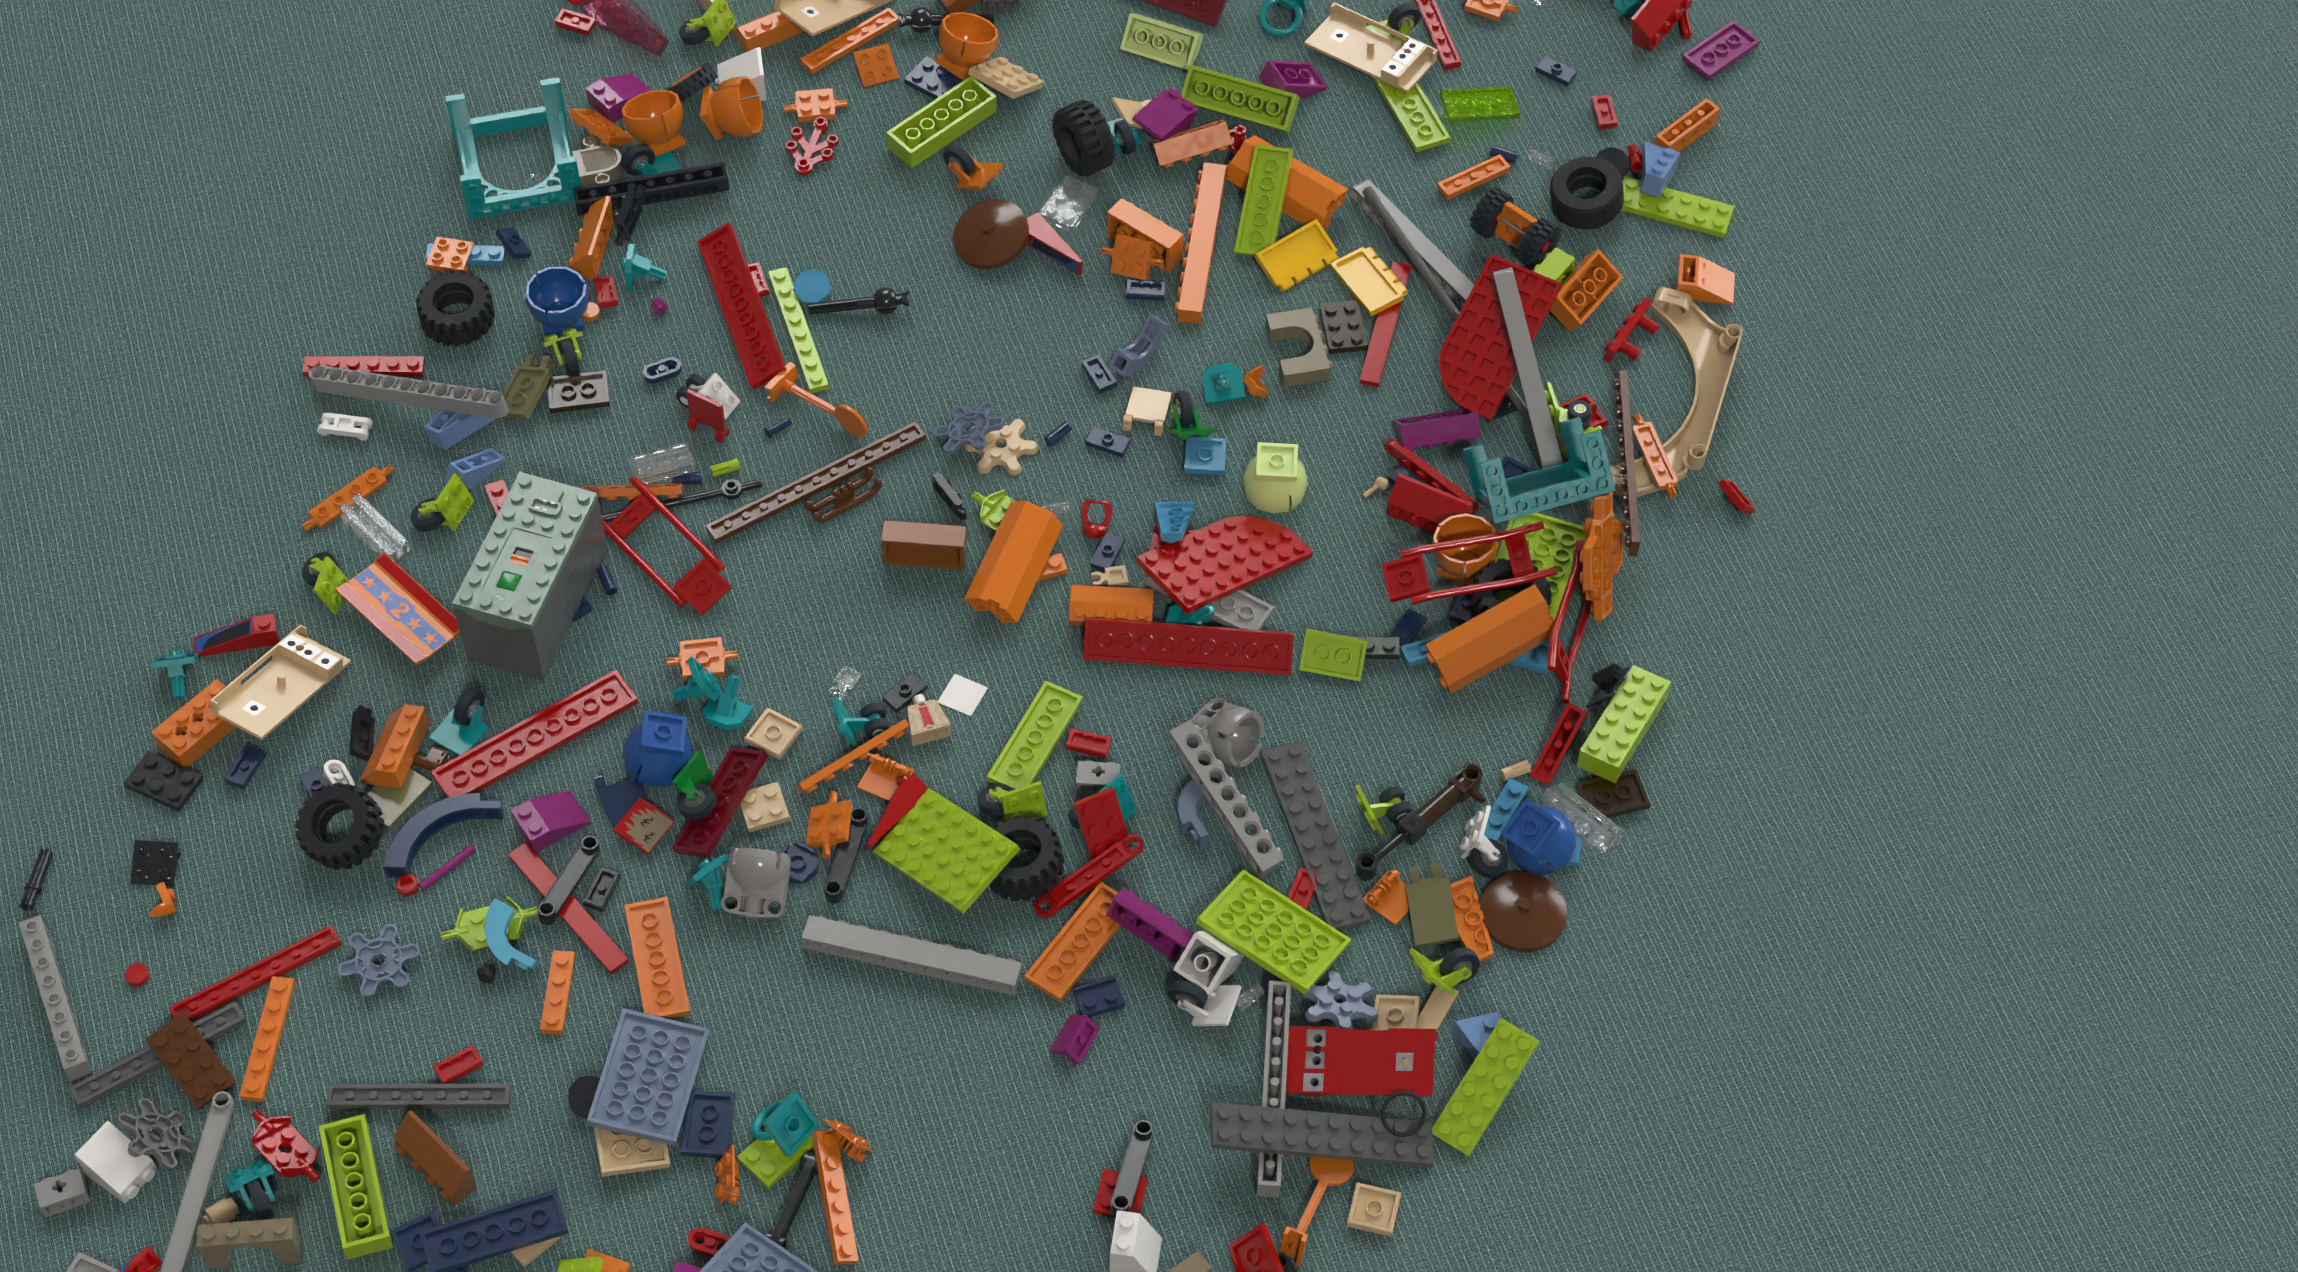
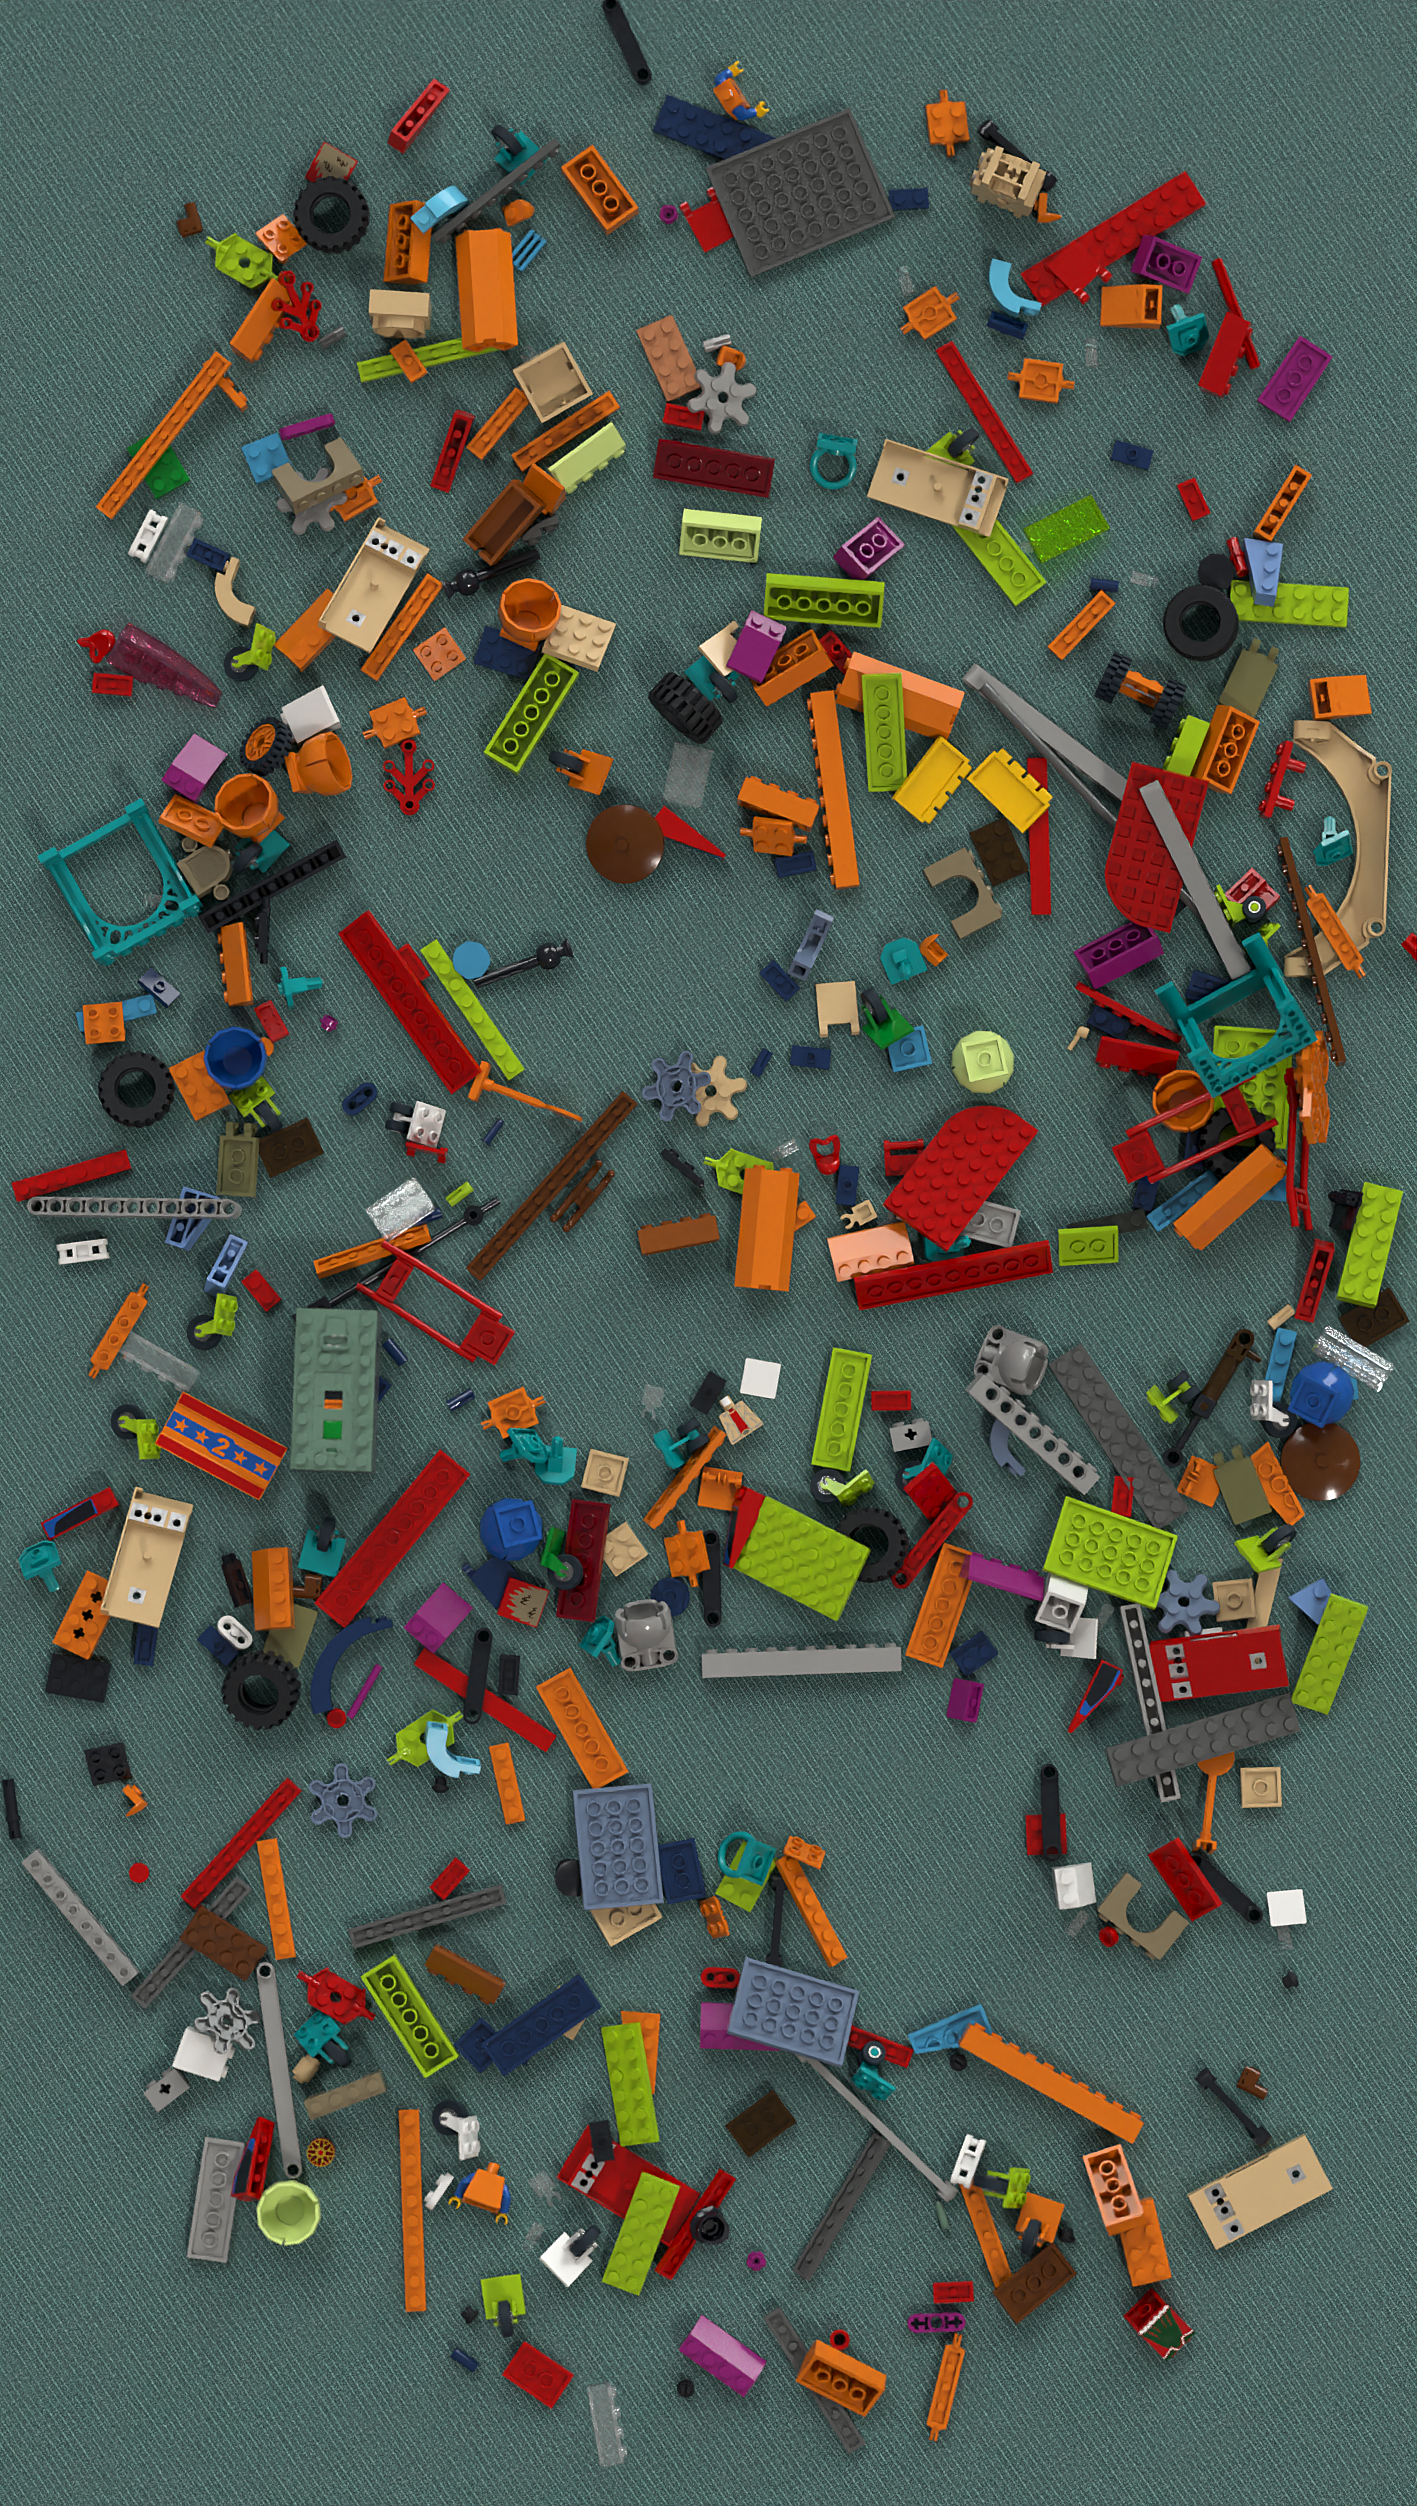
camera: 20 degrees left, 30 degrees up
(515, 328) = (197, 1088): none -> orange plate
(654, 636) = (461, 1399): none -> dark blue piece
(1173, 519) = (901, 1140): dark azure wing -> none
(1222, 1063) = (1100, 1686): none -> slope
(1416, 1129) = (1272, 1715): black piece -> none
(1628, 248) = (1249, 679): none -> olive tile
(1670, 390) = (1333, 845): none -> teal piece

